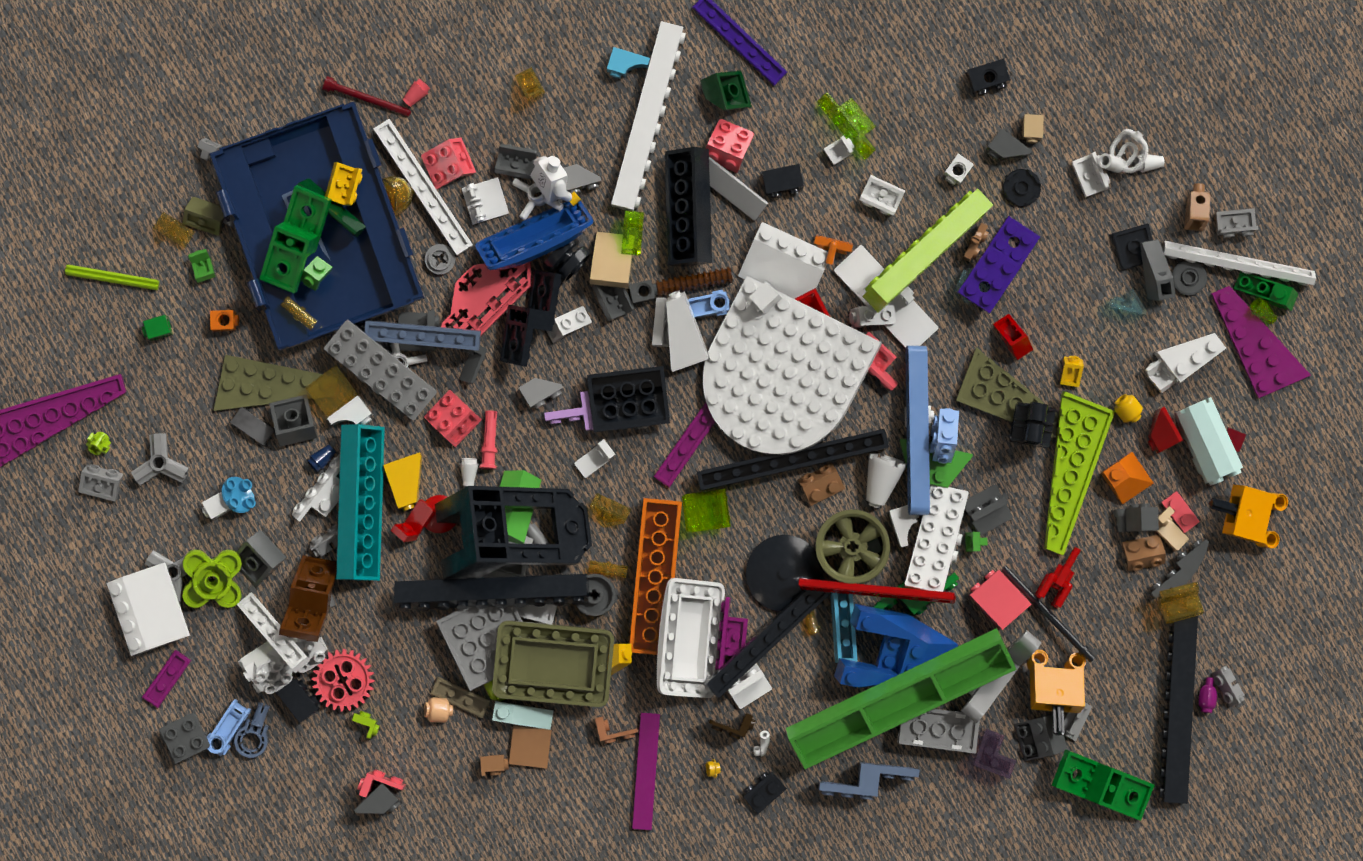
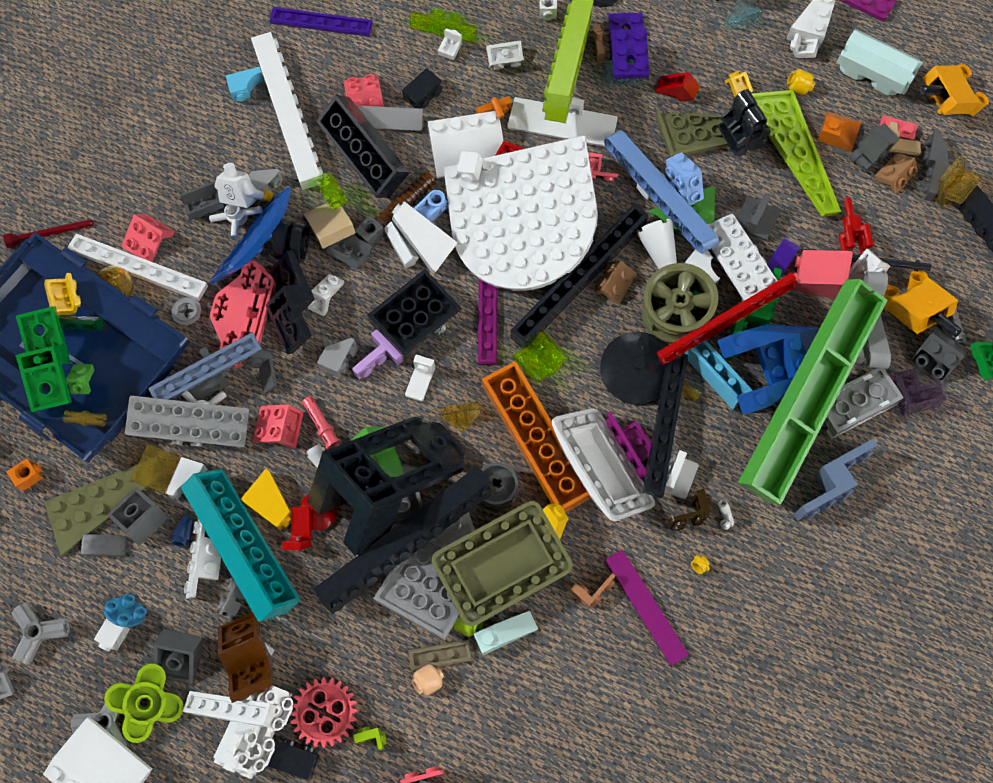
camera: 35 degrees left, 15 degrees down
(416, 92) = (87, 202): coral cone -> none
(485, 200) = (195, 246): white hinge -> none
(494, 764) = (510, 693): medium nougat brick -> none
(530, 84) = (180, 142): clear yellow slope -> none
(530, 746) = (531, 656): medium nougat tile -> none
(608, 569) = (500, 456): clear yellow pin -> none
(726, 90) = (332, 55): dark green slope -> none
(764, 792) = (757, 554): black bracket -> none
(867, 316) = (564, 132): white bracket -> none
(973, 541) = (766, 245): bright green tile -> none
(979, 561) = (783, 255): none -> dark purple slope
(1038, 623) = (867, 262): none -> white bracket
(1163, 431) = (840, 76): red slope -> none

